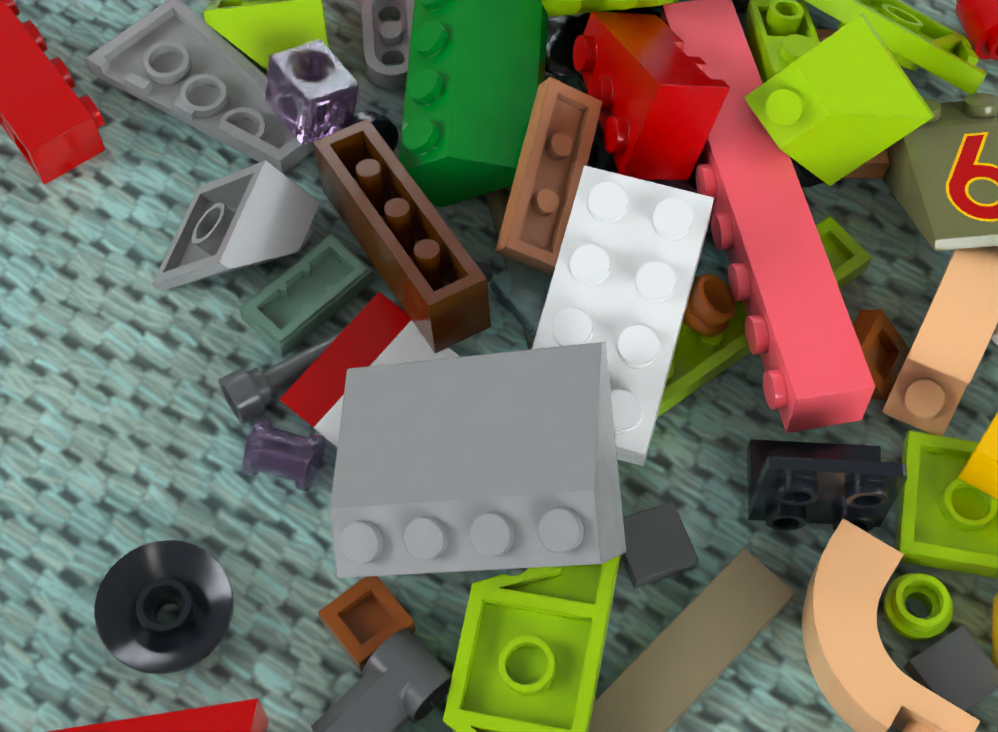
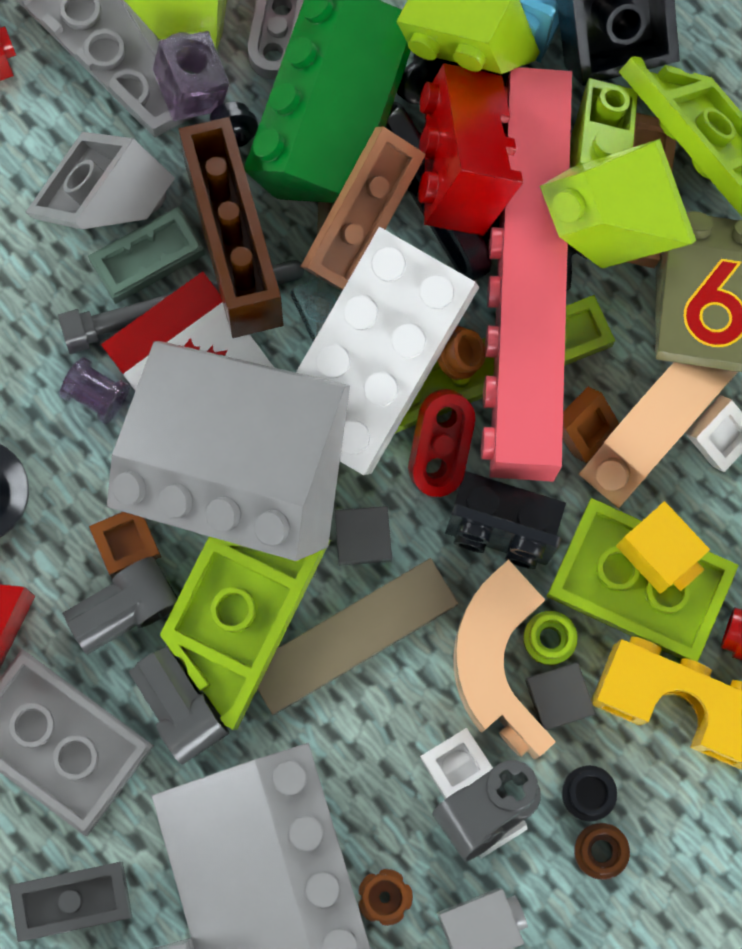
camera: 10 degrees right, 15 degrees up
(721, 410) = (442, 440): none -> red plate

